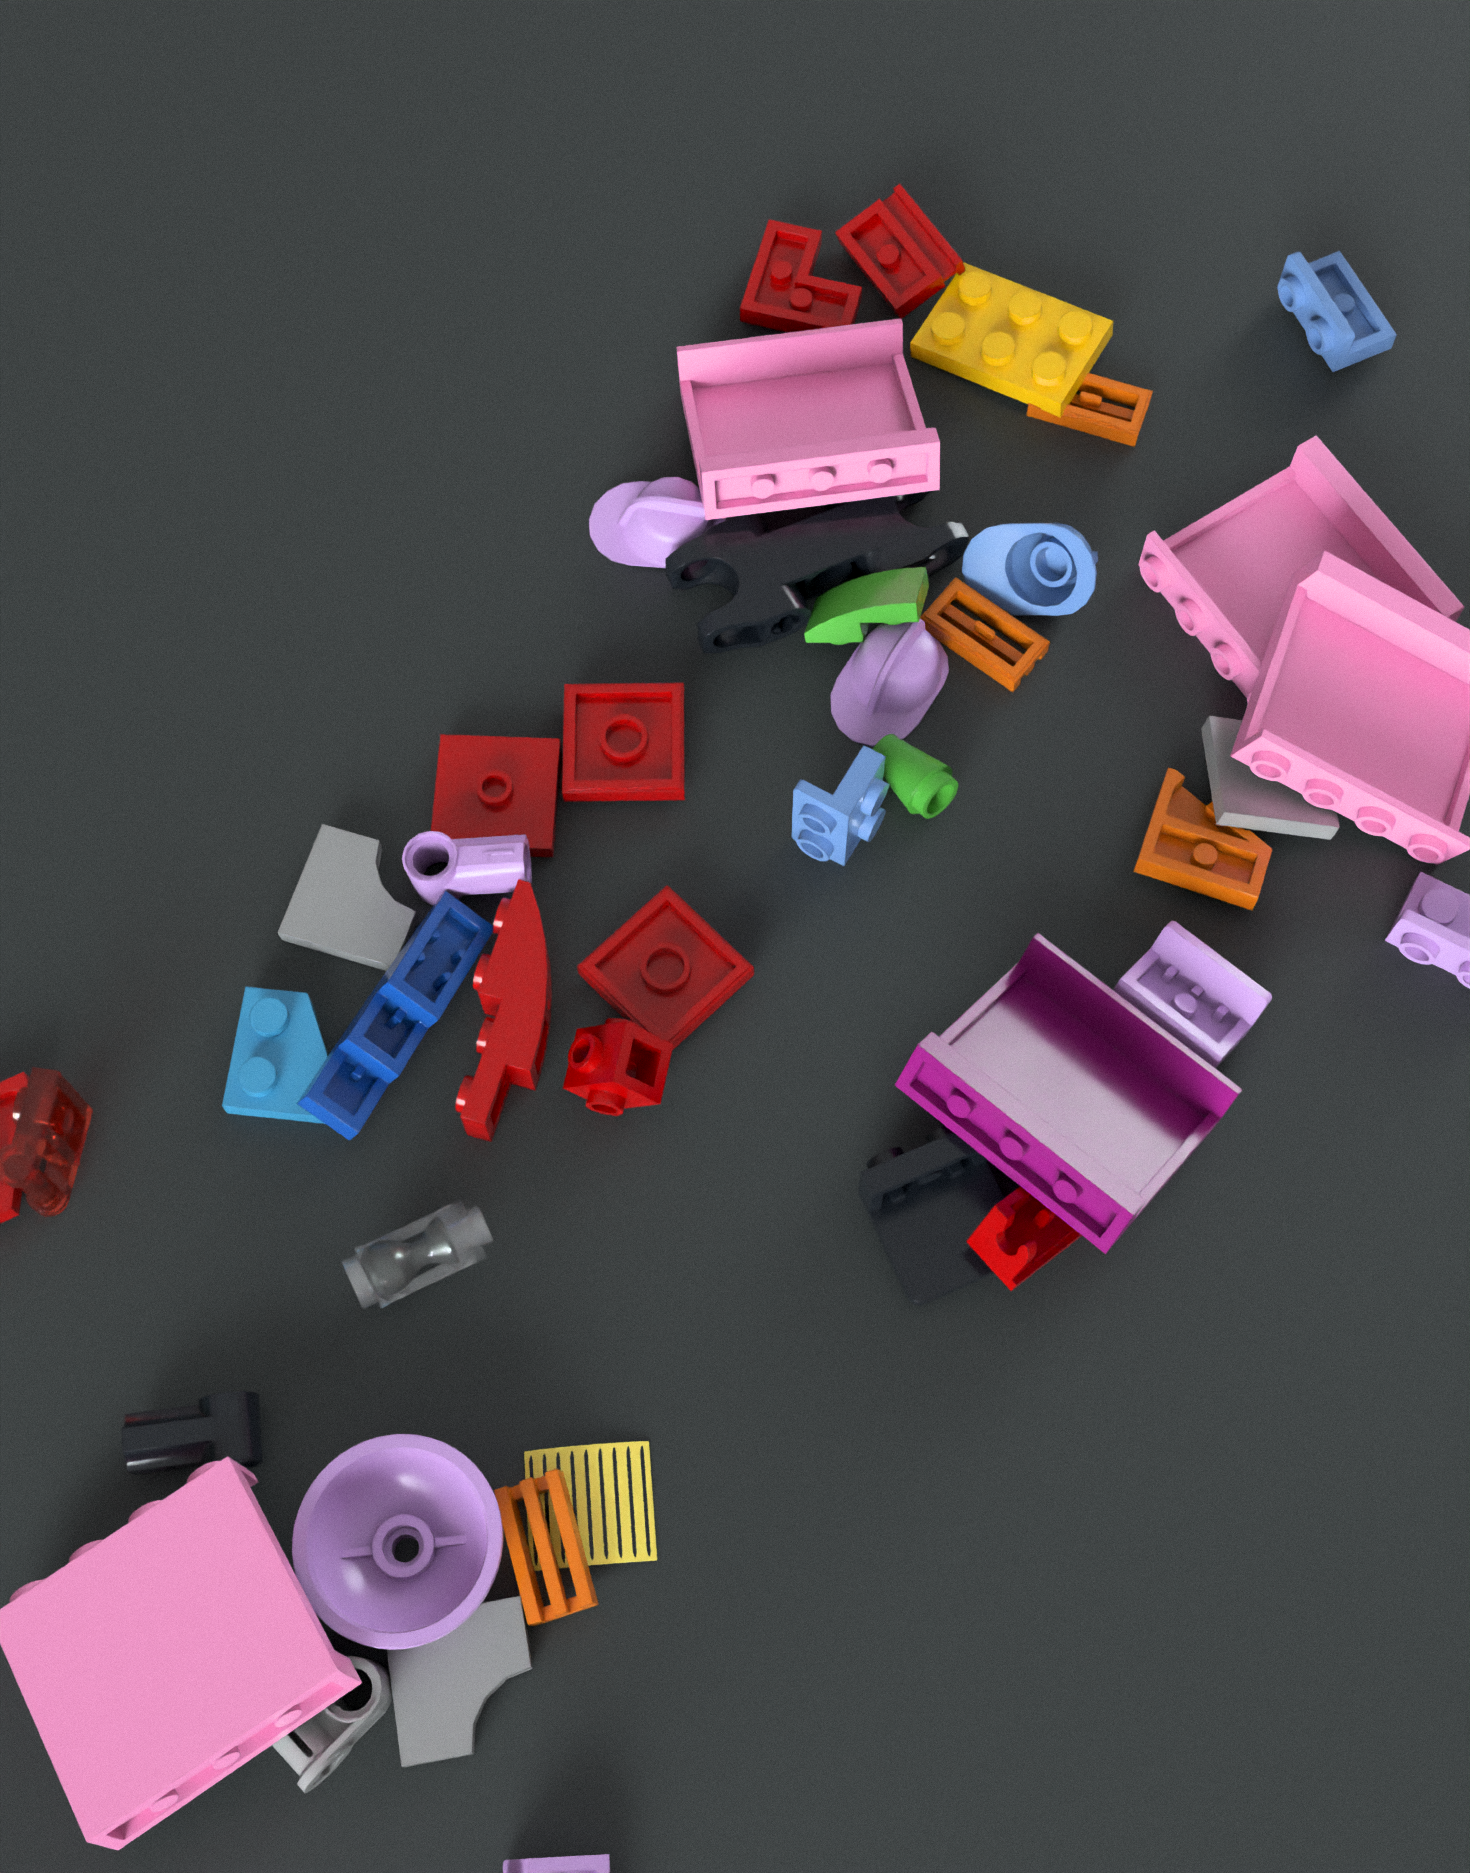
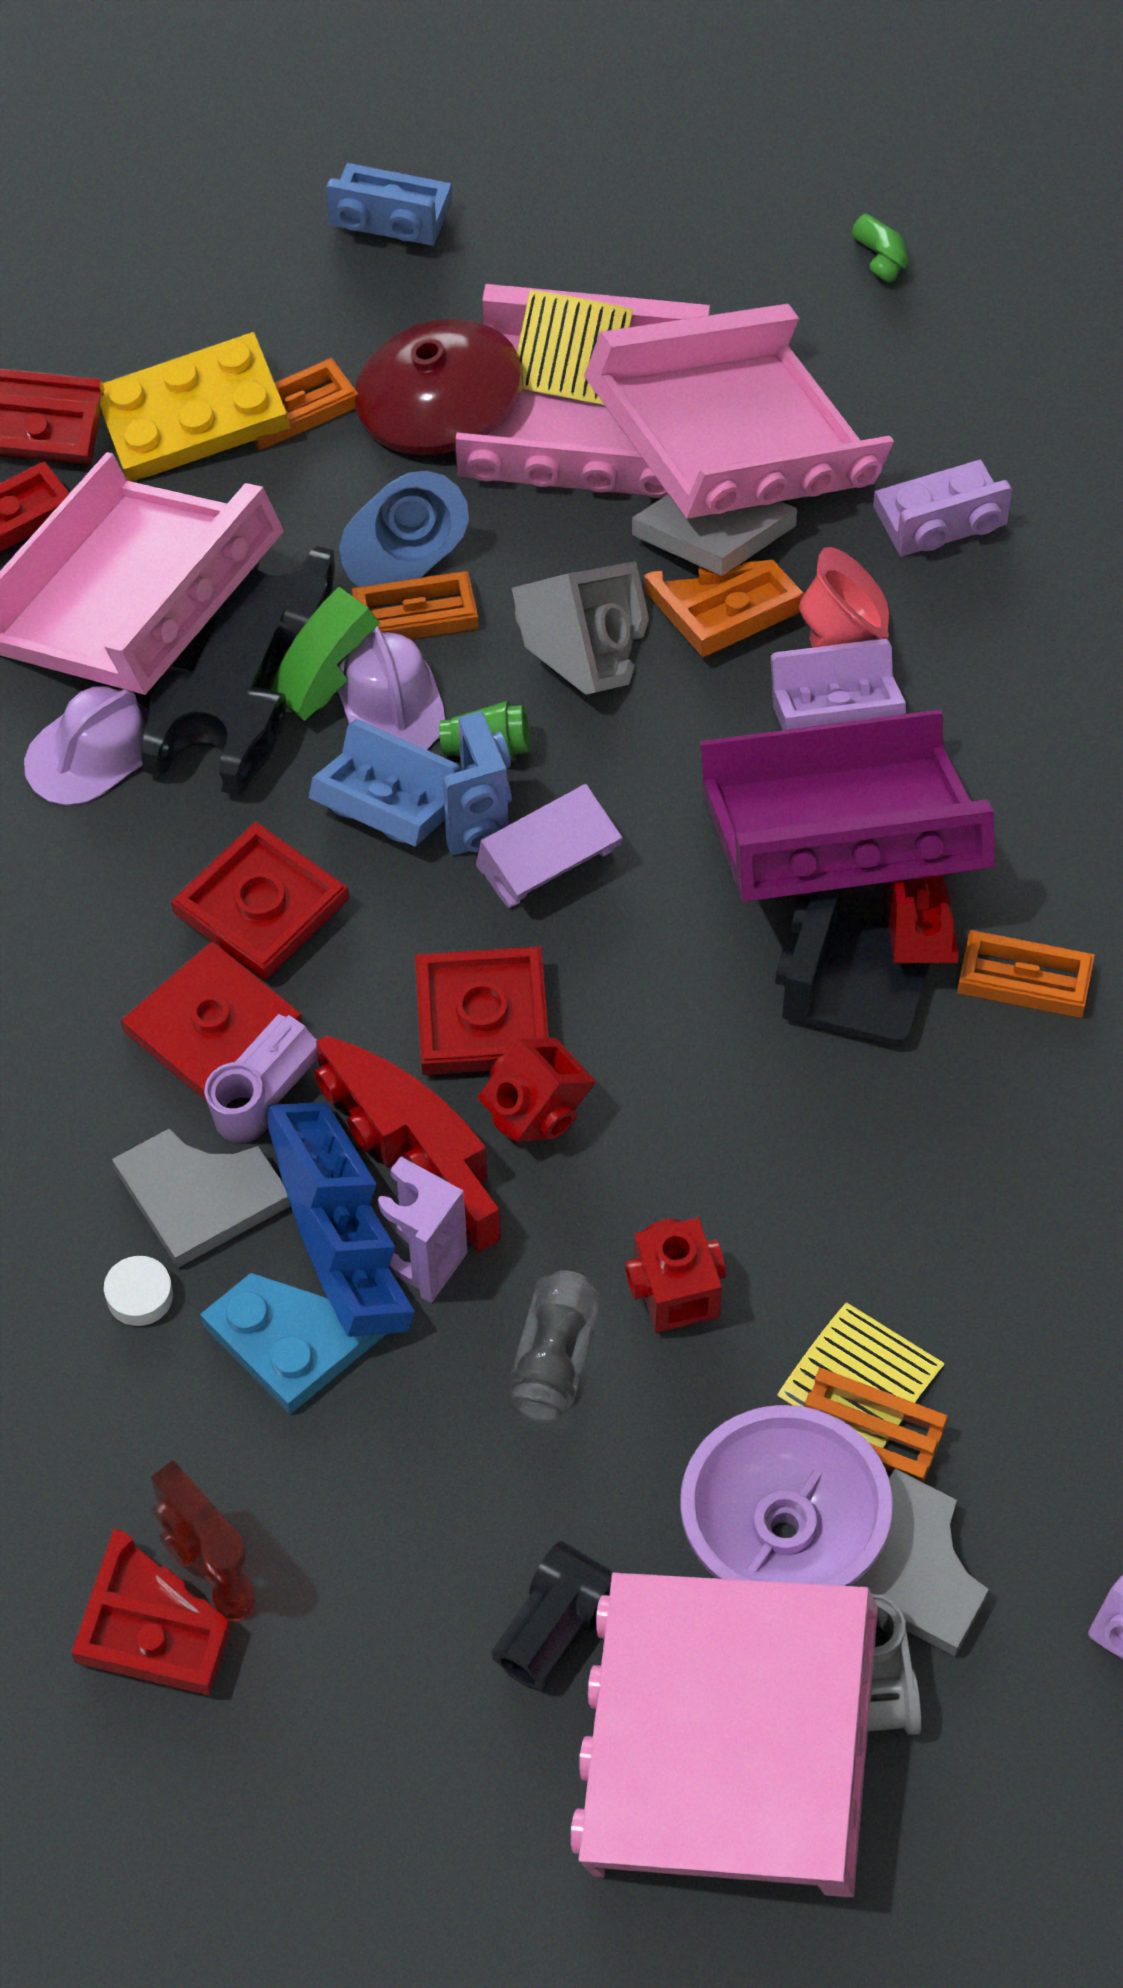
camera: 50 degrees left, 10 degrees down
(236, 929) = (138, 1290): none -> white tile
(422, 1092) = (431, 1222): none -> lavender hinge
(546, 1317) = (676, 1273): none -> red brick
(794, 739) = (385, 784): none -> medium blue bracket
(848, 899) = (546, 844): none -> lavender hinge
(1046, 1363) = (1025, 982): none -> orange tile
(1076, 764) = (585, 624): none -> light grey slope
(1200, 483) = (438, 384): none -> dark red dish
(1285, 935) = (843, 602): none -> coral piece
(1326, 520) = (560, 340): none -> light yellow sticker

